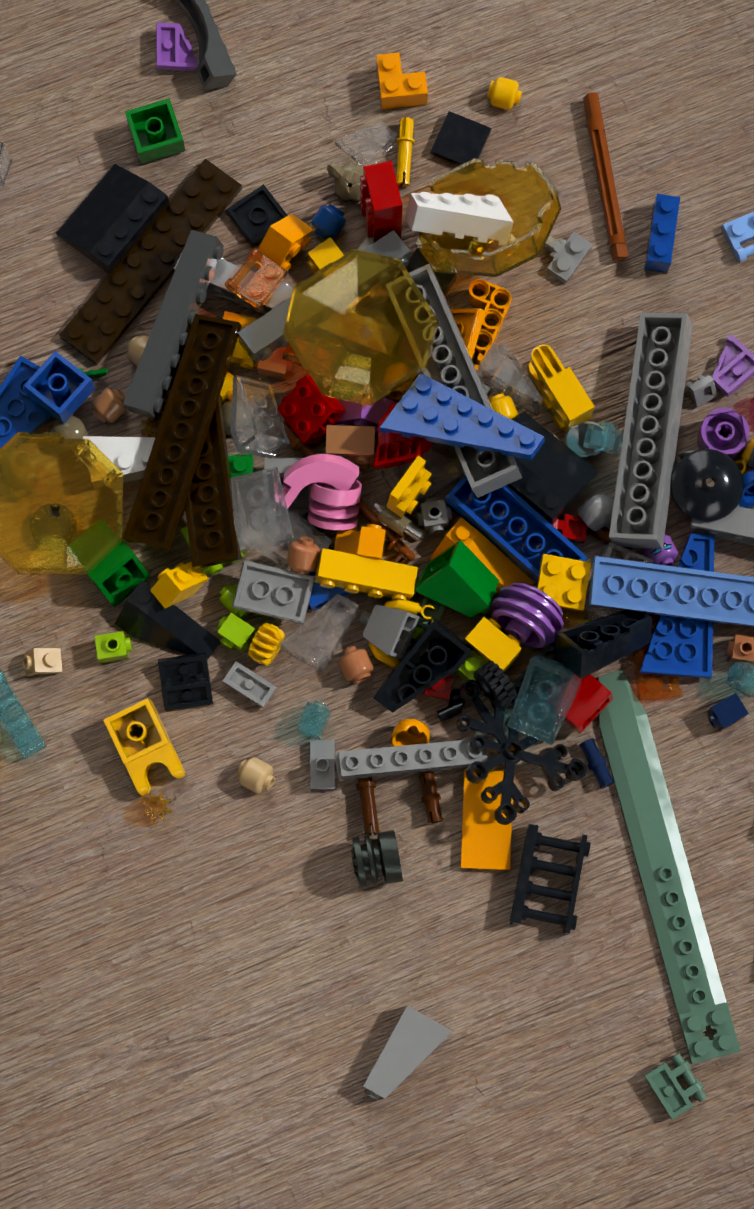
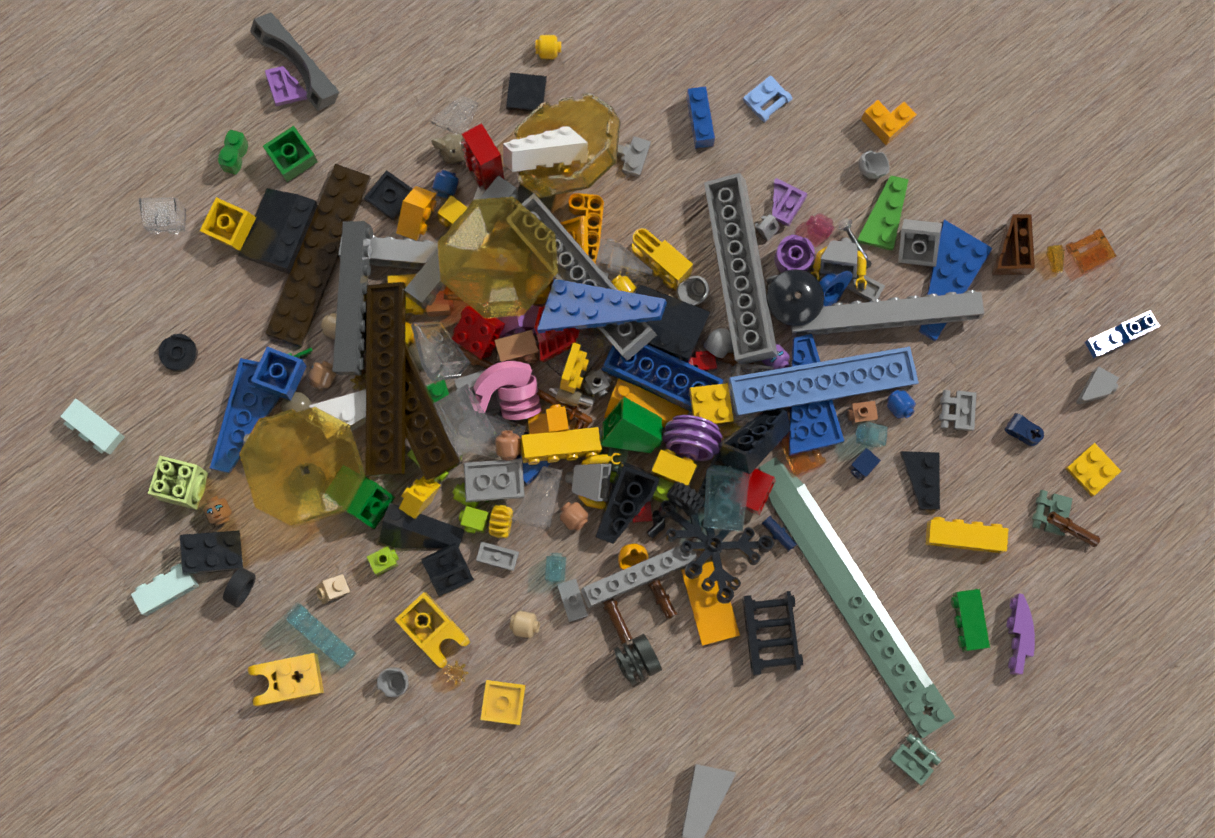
camera: 20 degrees left, 0 degrees up
(55, 192) = (227, 224): none -> yellow brick
(78, 793) = (393, 682): none -> light grey hair
(91, 106) = (231, 155): none -> green brick
(201, 859) = (503, 702): none -> yellow plate
(261, 284) = (410, 246): clear orange plate -> none
(396, 88) = (463, 66): light orange brick -> none
(405, 144) = (486, 113): yellow axle -> none
(603, 437) = (706, 285): clear light blue brick -> none
(605, 177) = (644, 88): dark orange piece -> none

